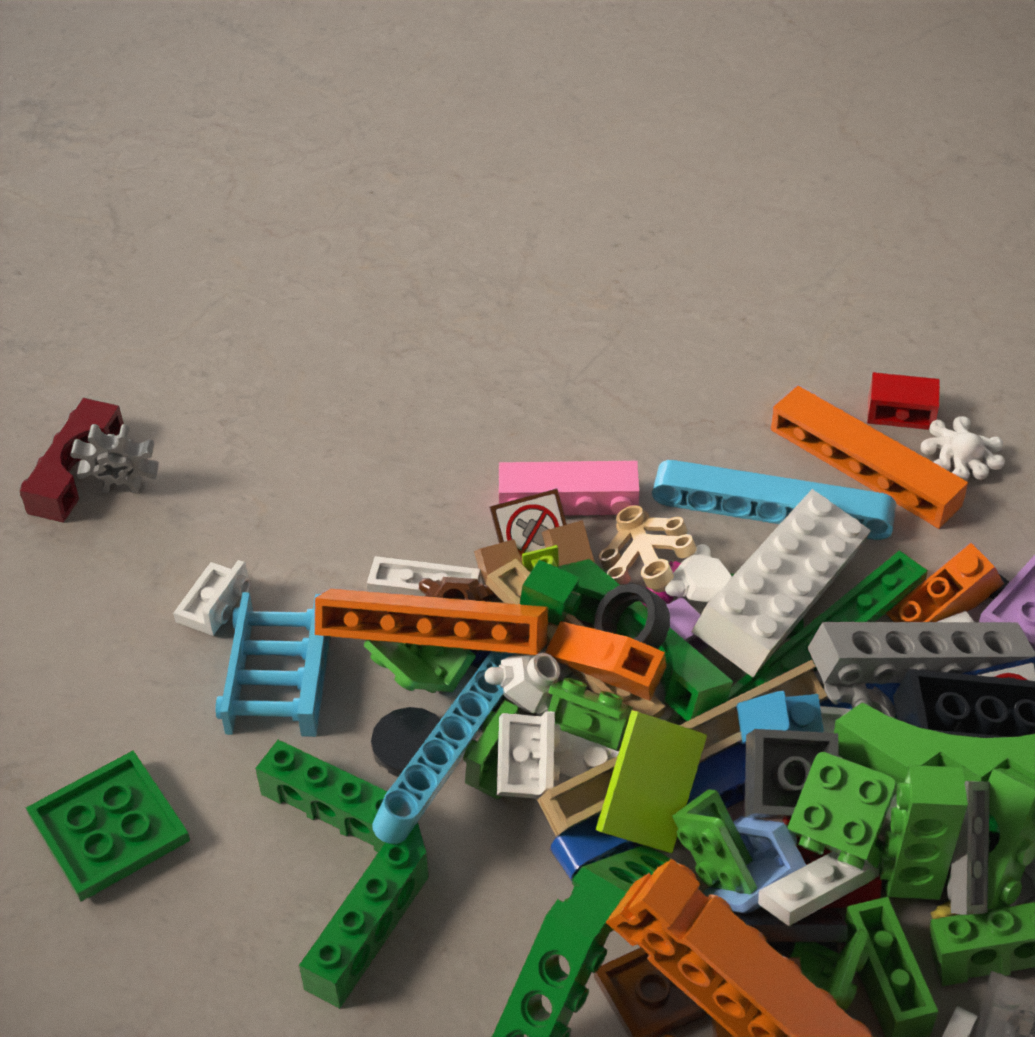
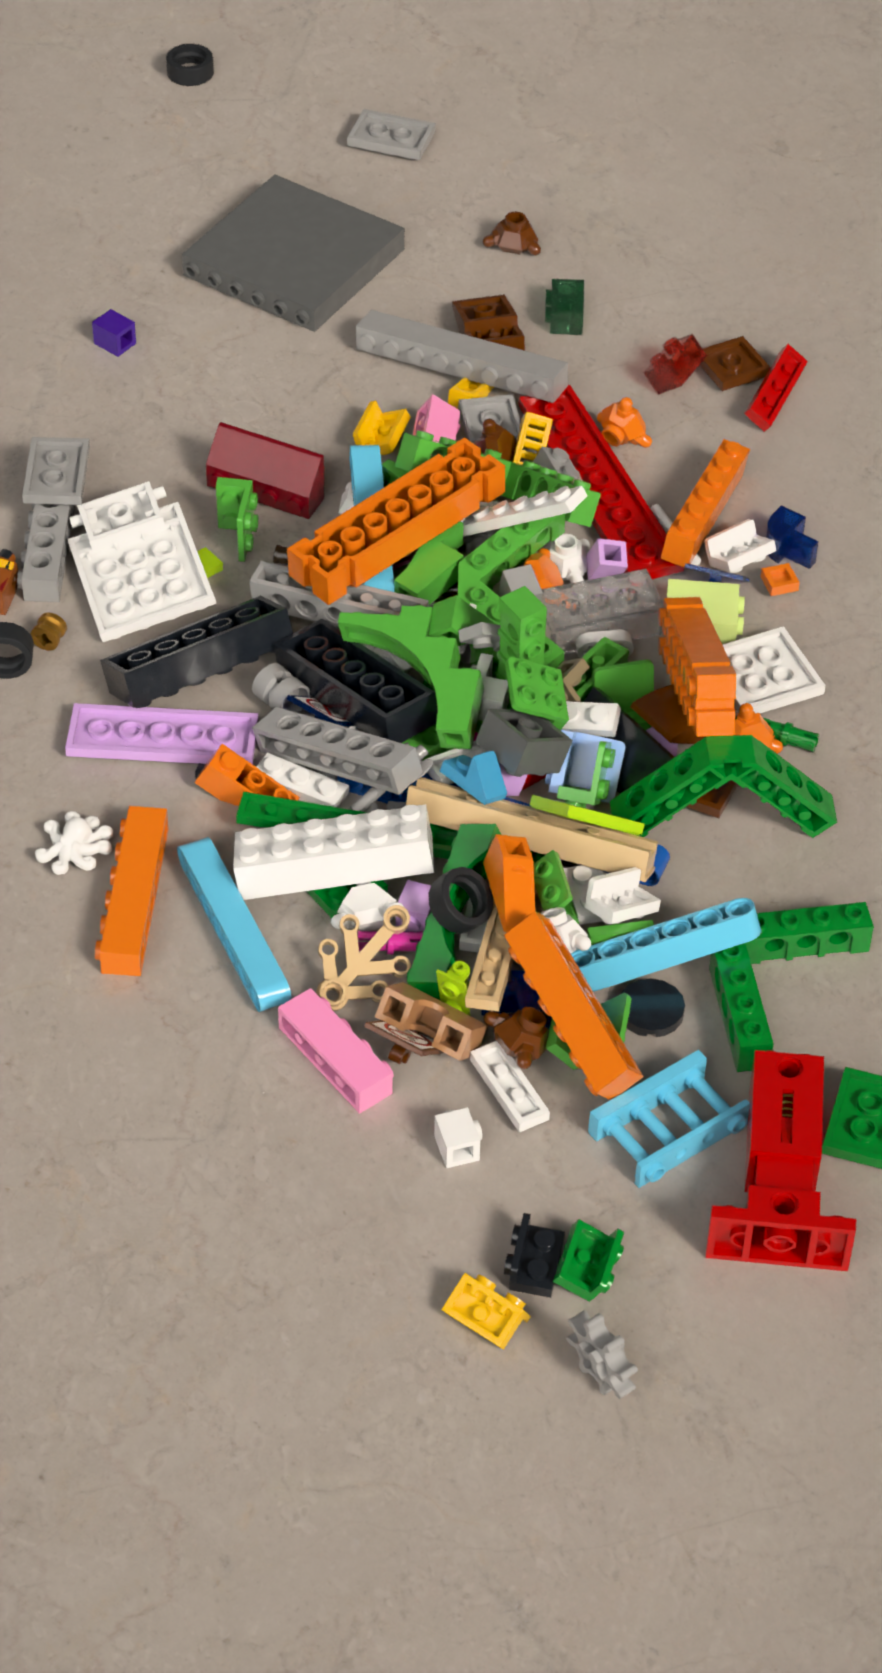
camera: 130 degrees left, 0 degrees up
(50, 487) = (575, 1434): dark red arch -> none
(143, 689) = (782, 1174): none -> red brick
(211, 524) = (588, 1260): none -> green bracket
(213, 597) = (652, 1200): white bracket -> none
(239, 447) = (484, 1310): none -> yellow bracket
(253, 500) = (534, 1258): none -> black bracket
(405, 513) = (457, 1137): none -> white brick
(552, 589) = (487, 946): green brick -> none
(878, 900) = (571, 674): none -> dark tan bracket
(903, 400) = (48, 896): red brick -> none

